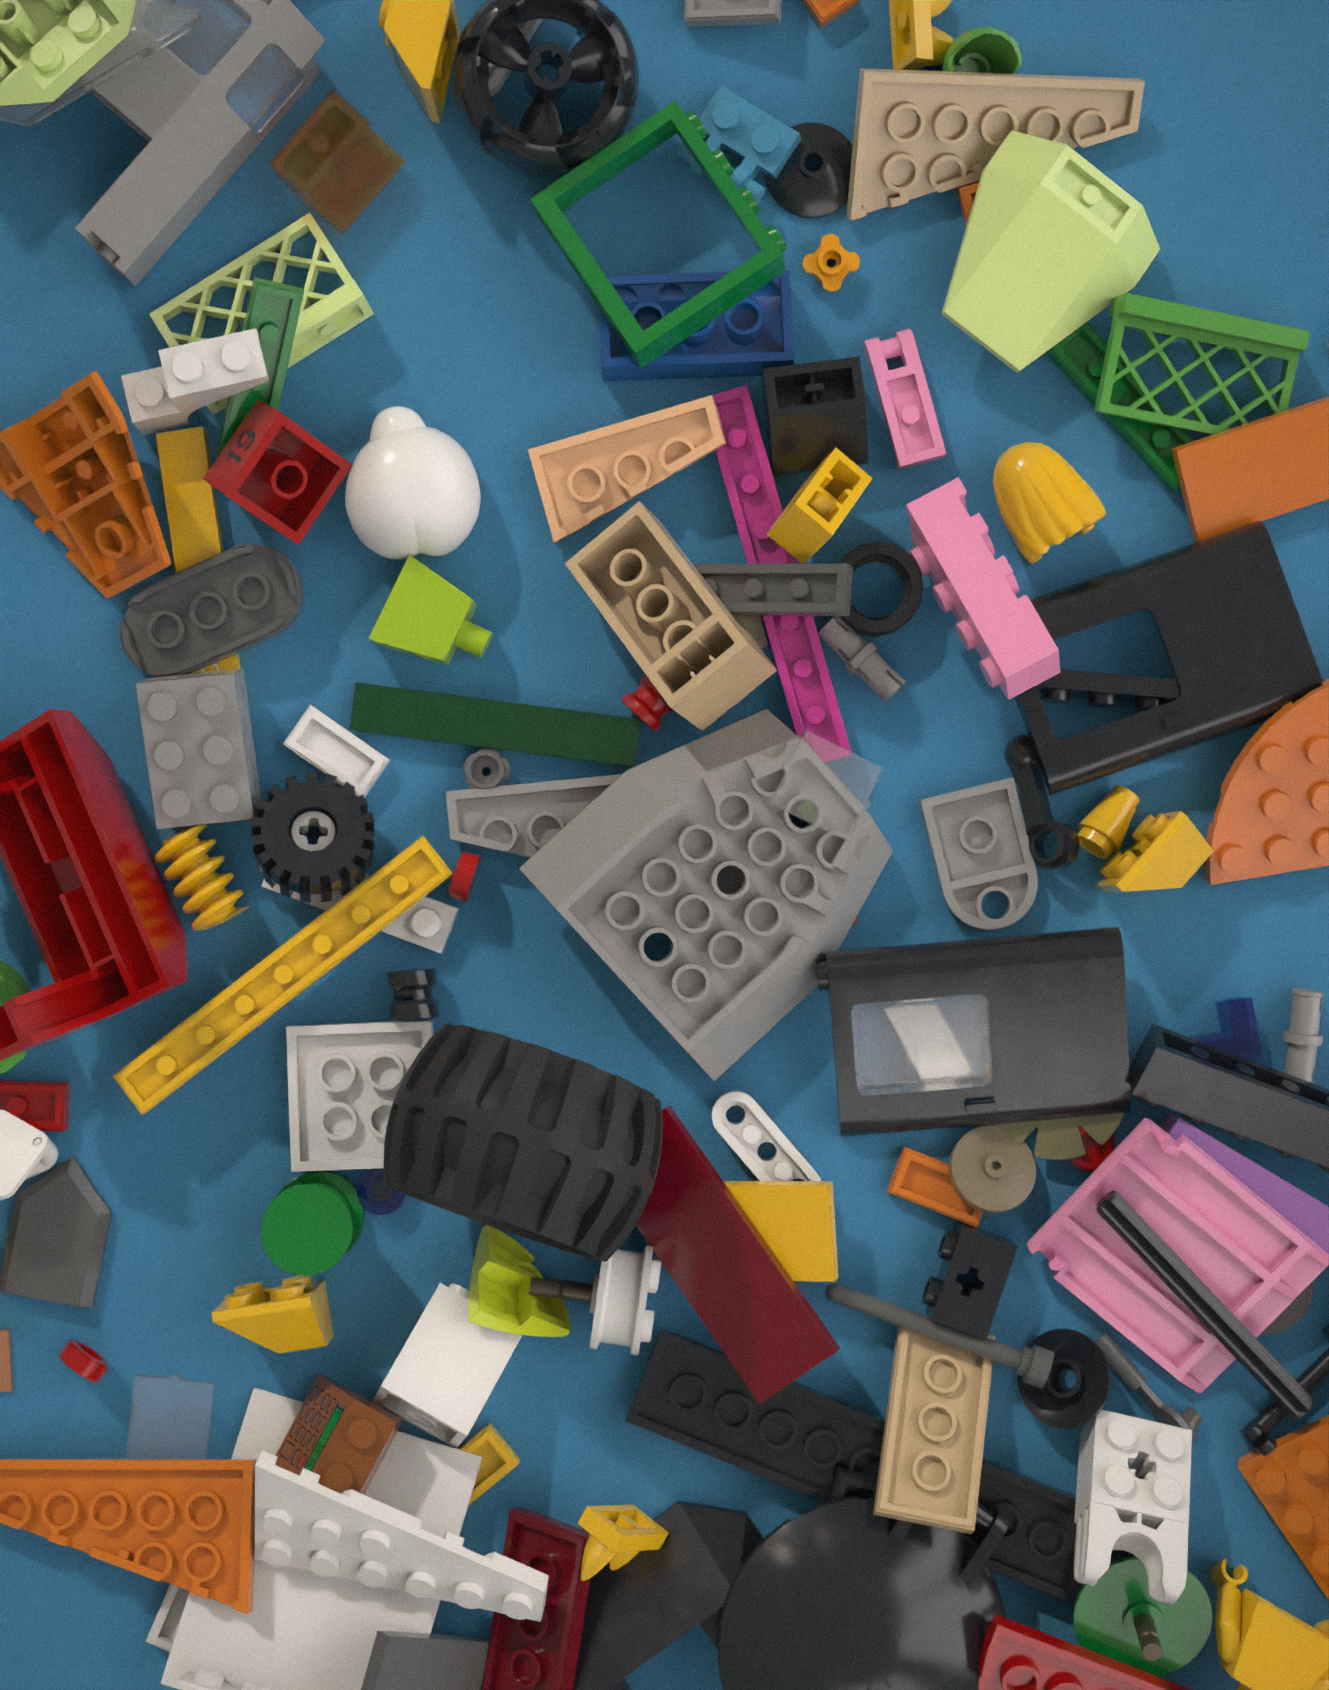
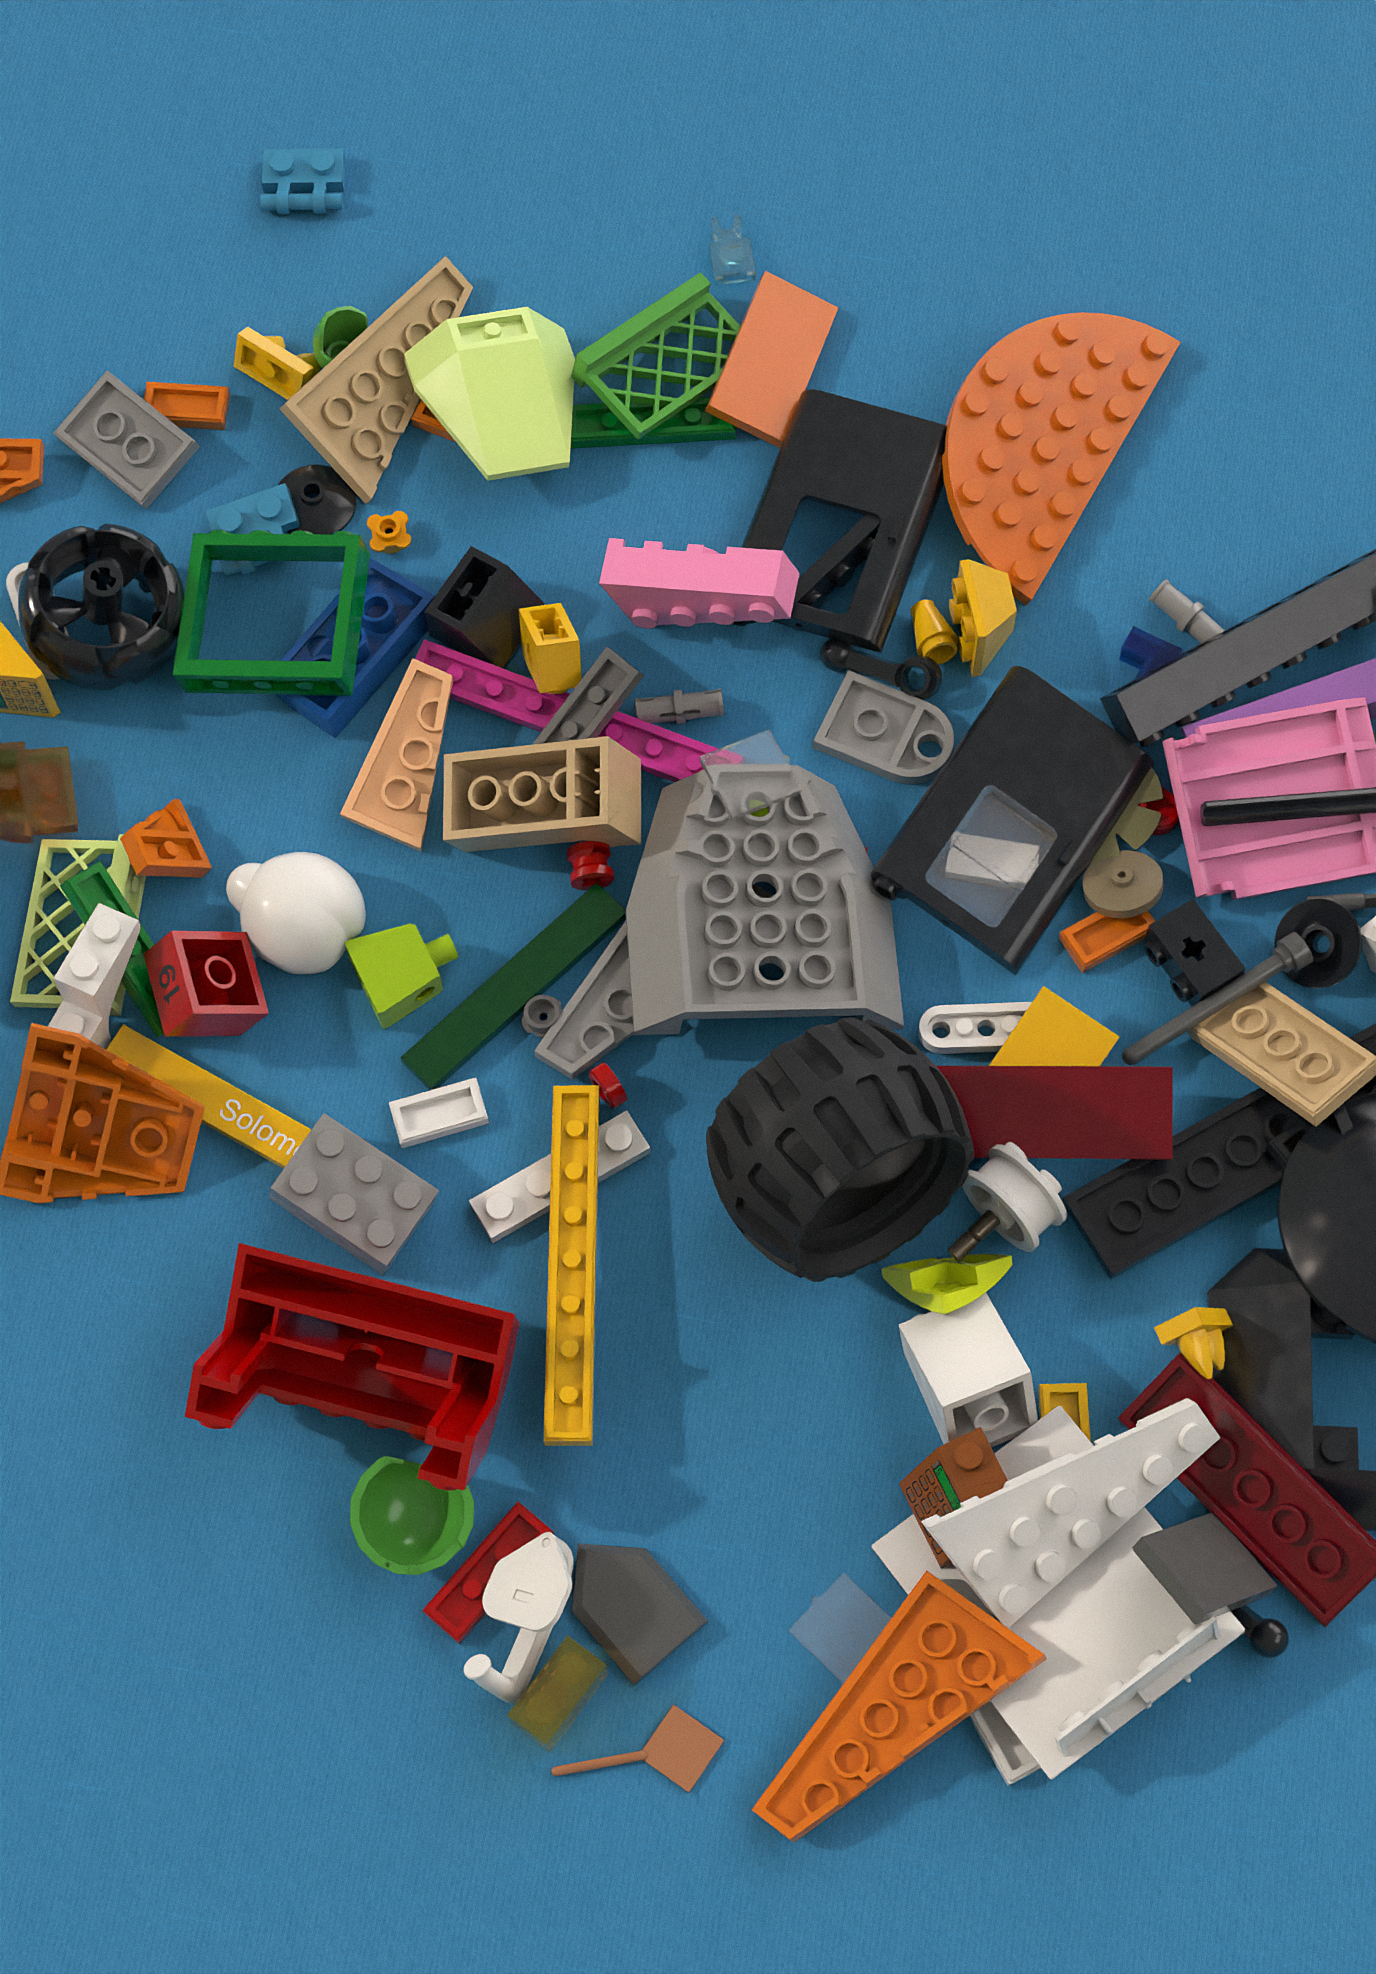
camera: 50 degrees left, 20 degrees down
(84, 1360) = (745, 1653): red tile -> none
(199, 878) = (449, 1273): yellow piece -> none
(212, 610) = (259, 1115): dark grey tile -> none
(279, 1317) = (833, 1463): yellow slope -> none
(312, 1222) = (777, 1386): green hat -> none
(318, 867) = (487, 1186): black bush -> none
(344, 1089) = (705, 1287): white plate -> none
(377, 1196) = (793, 1327): clear blue tile -> none
(380, 325) = (166, 845): none -> orange wing
(413, 994) = (663, 1188): black wheel -> none
(905, 400) = (527, 551): bright pink plate -> none
(912, 584) = (650, 634): black tyre -> none
(1042, 499) = (668, 507): yellow hair -> none

